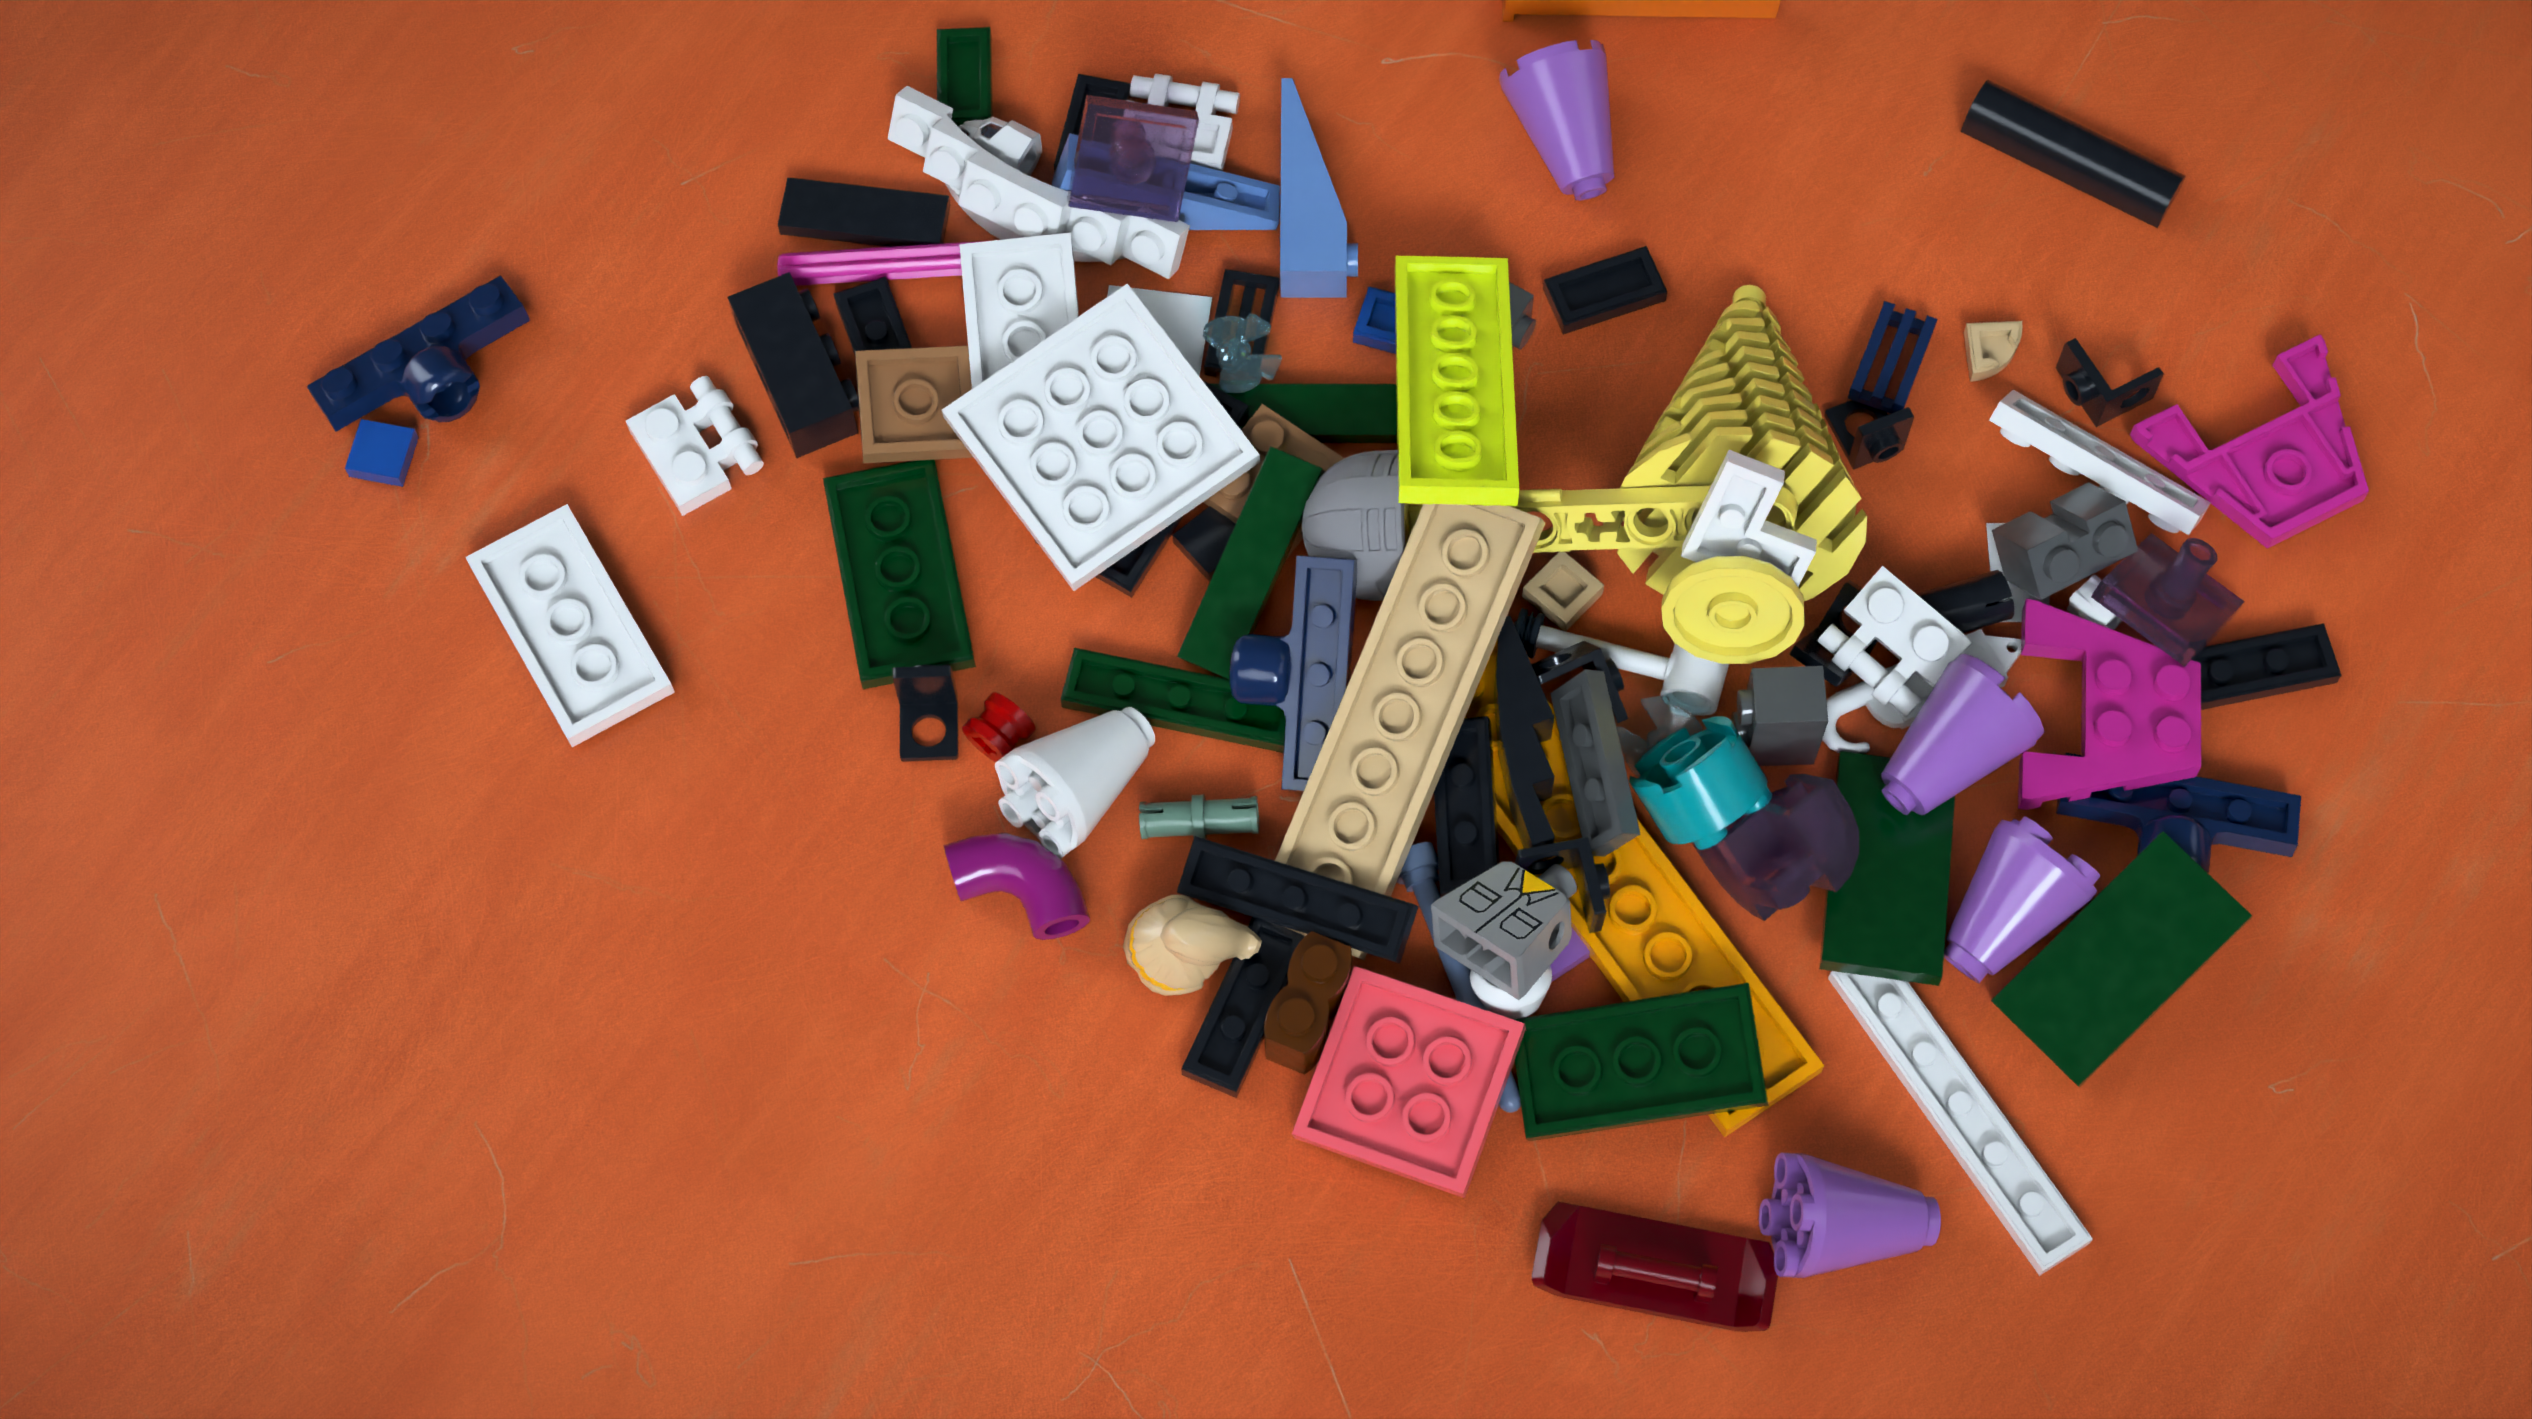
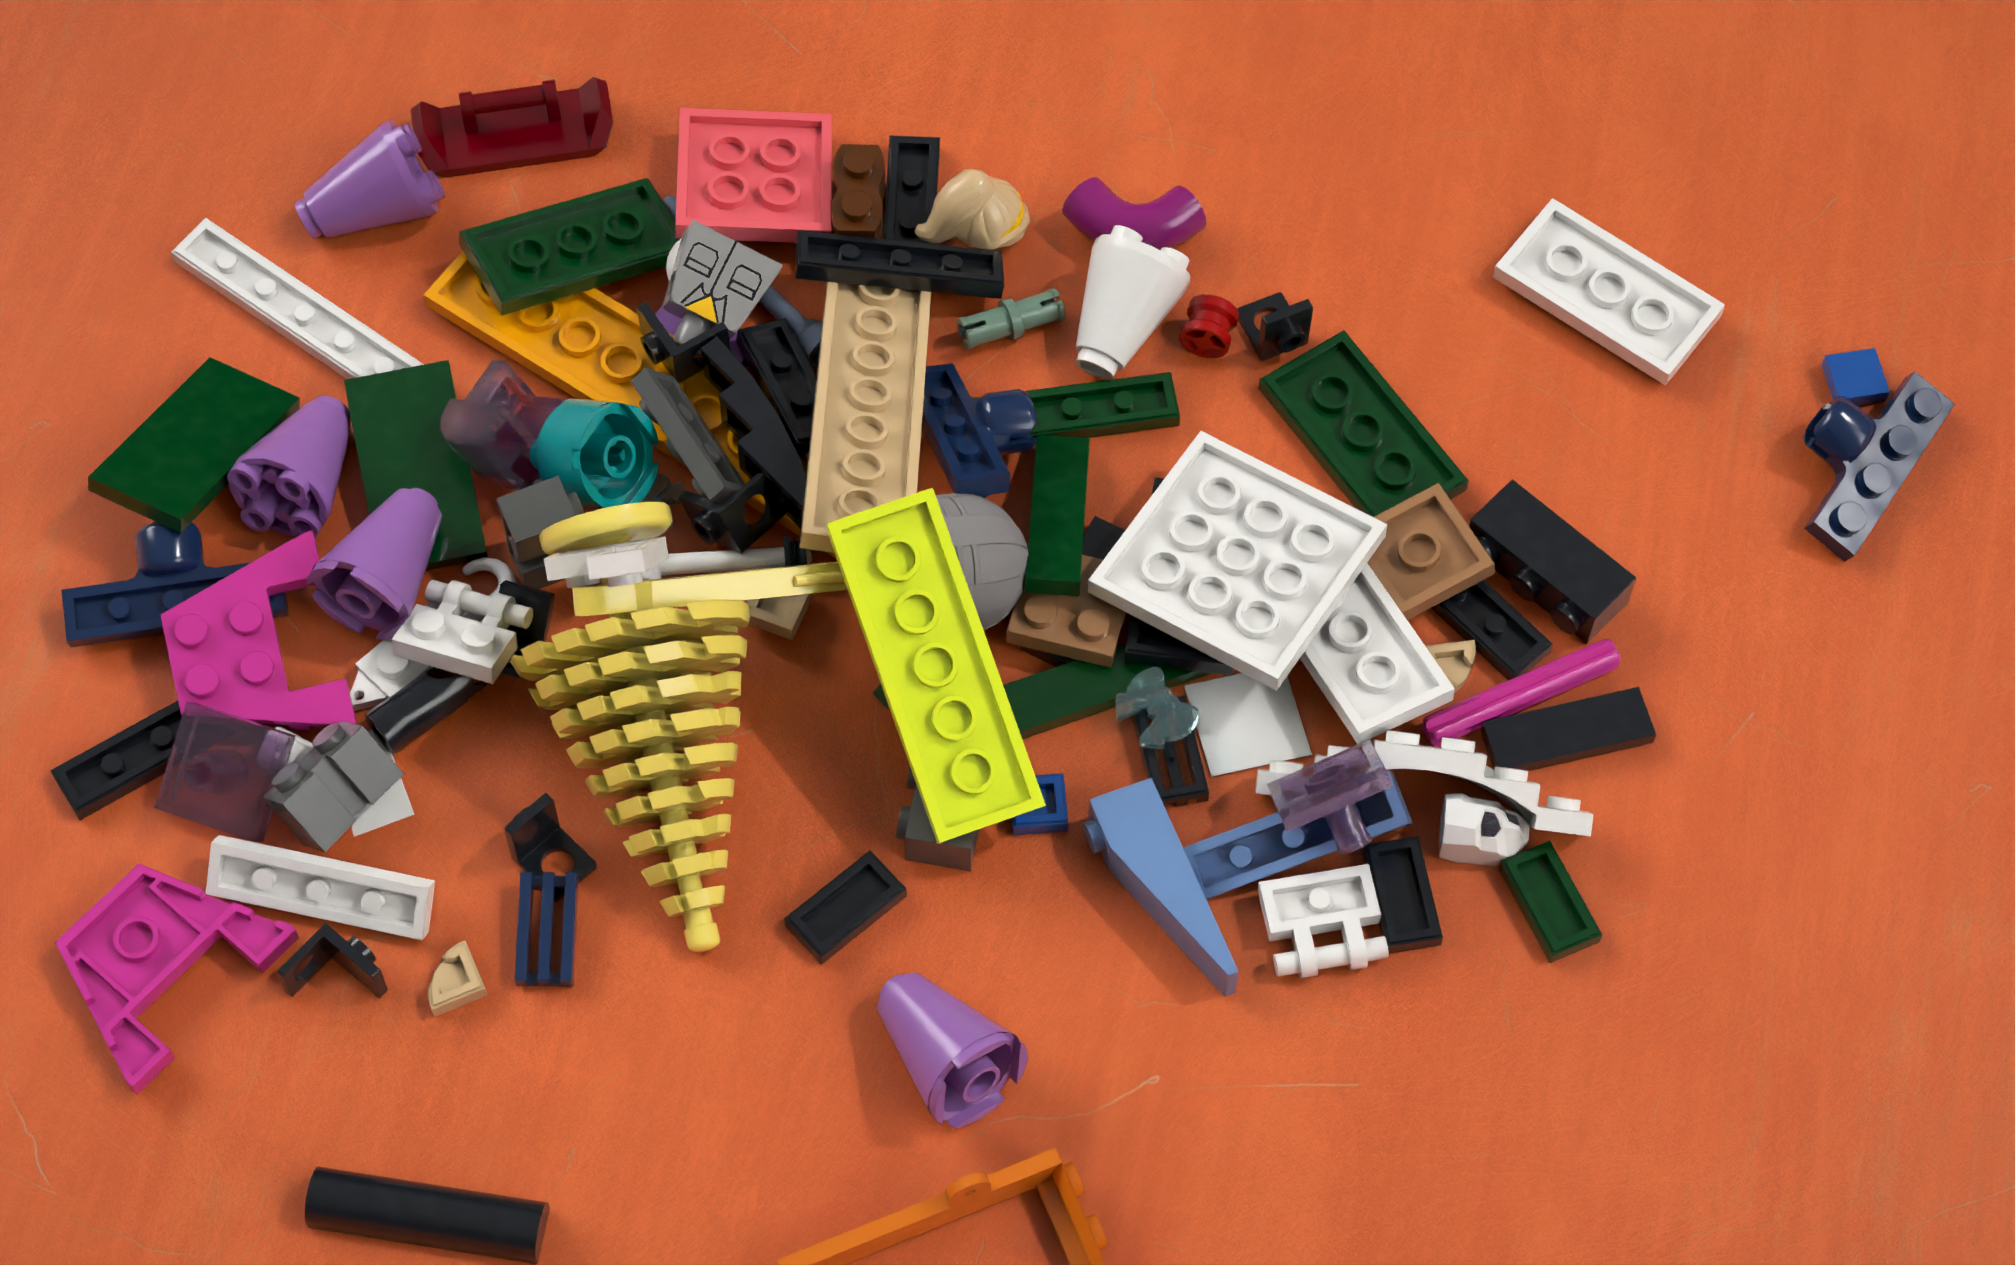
camera: 155 degrees right, 5 degrees down
(679, 453) = (1603, 464): white plate -> none
(939, 316) = (1455, 660): none -> tan tile

